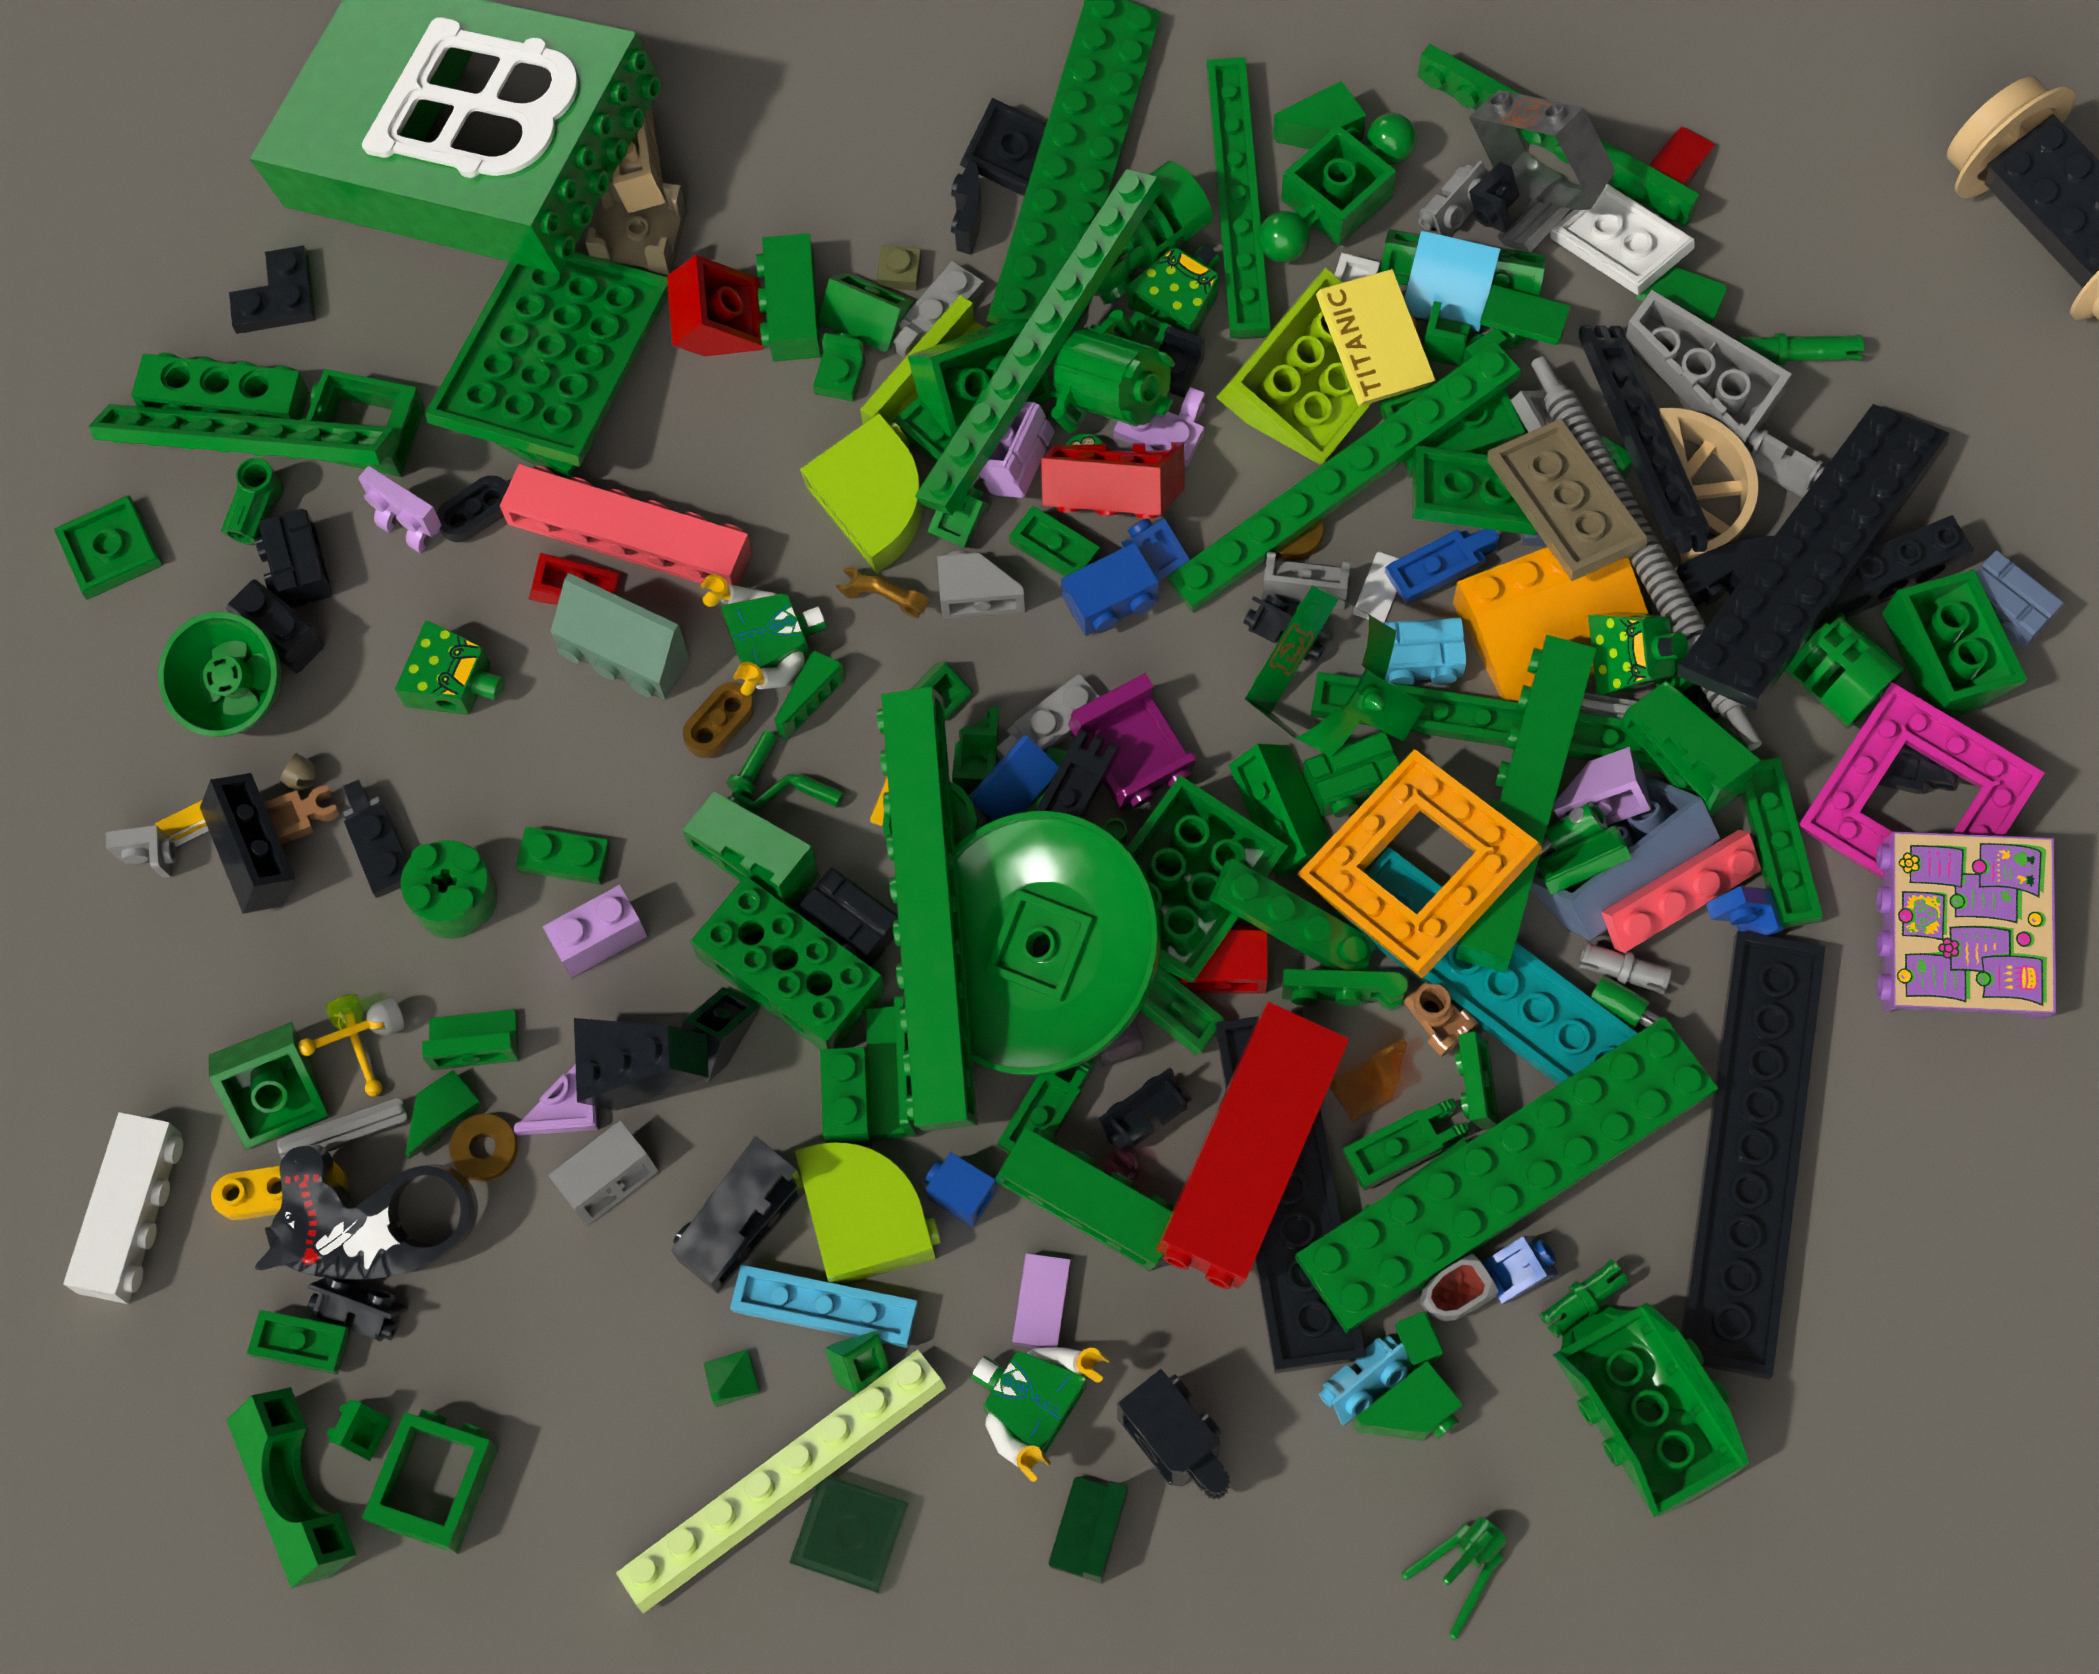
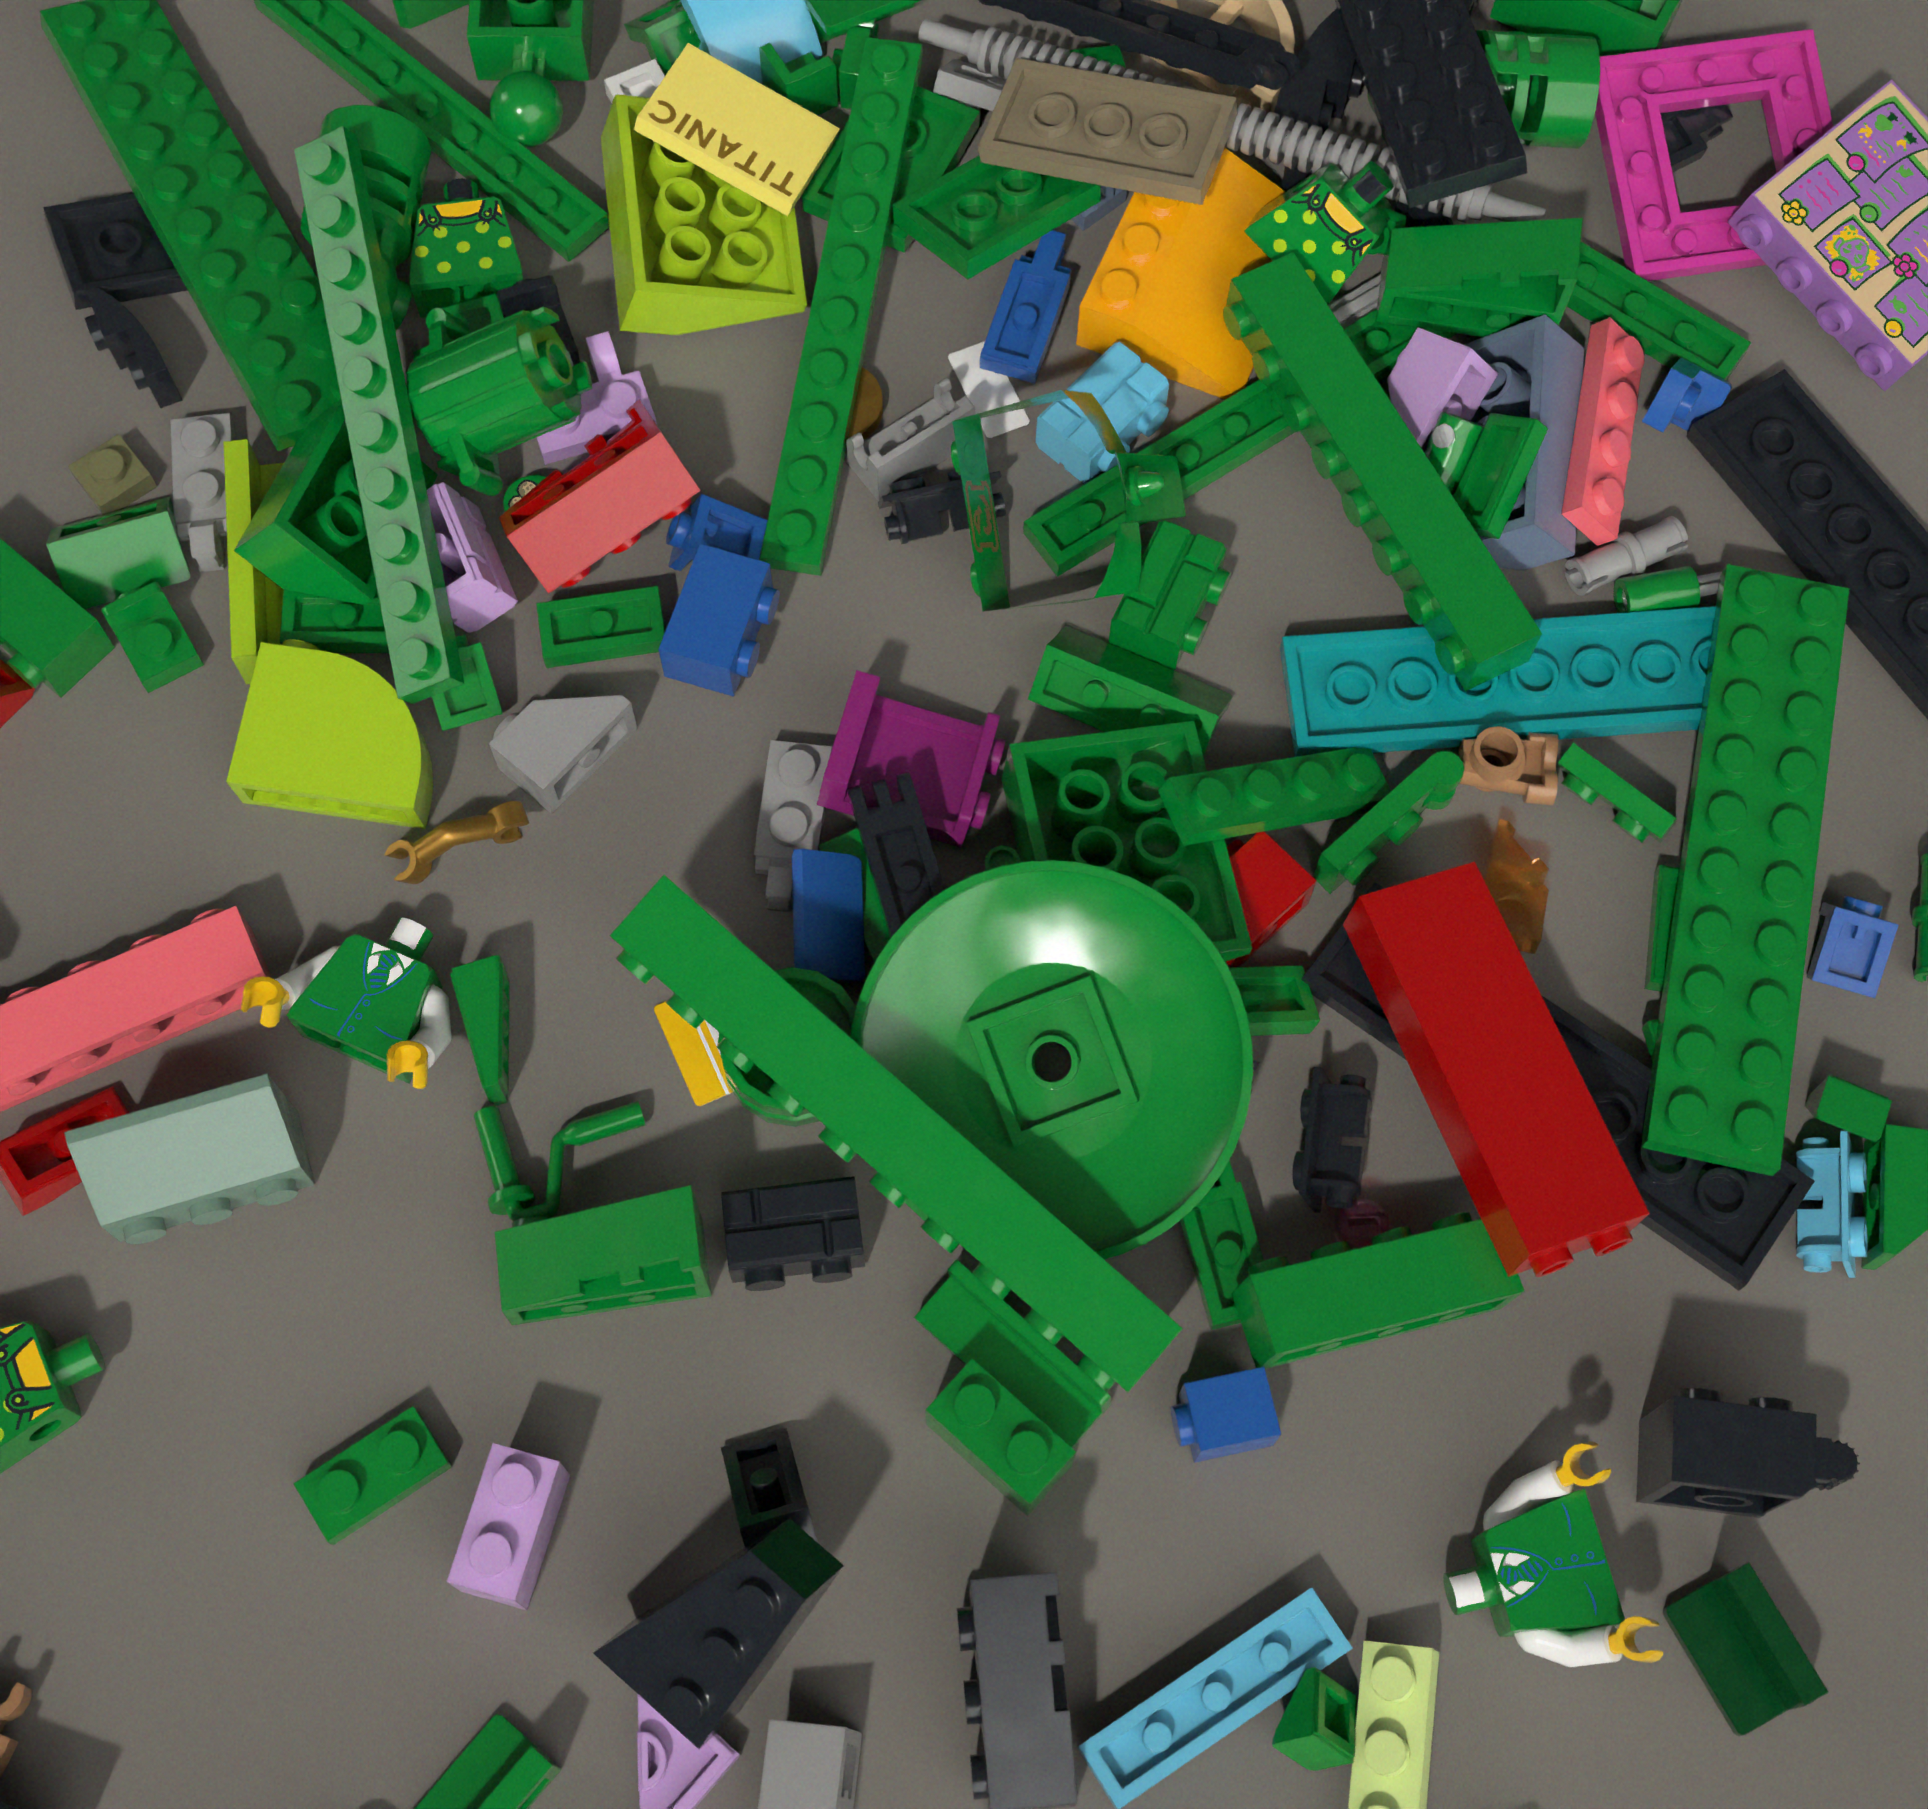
camera: 50 degrees left, 0 degrees up
(374, 840) = (115, 1678): black hinge -> none
(460, 872) = (233, 1637): green brick -> none
(715, 720) = (407, 1152): pearl gold plate -> none
(787, 938) = (752, 1314): green brick -> none
(863, 1212) = (1150, 1547): lime brick -> none
(947, 684) = (621, 884): green slope -> none
(976, 751) = (746, 915): green slope -> none
(1041, 1301) = (1433, 1454): lavender tile -> none
(1402, 1144) = (1611, 931): green hinge -> none
(1425, 937) = (1430, 698): light orange plate -> none
(1458, 1290) = (1830, 1023): rock -> none

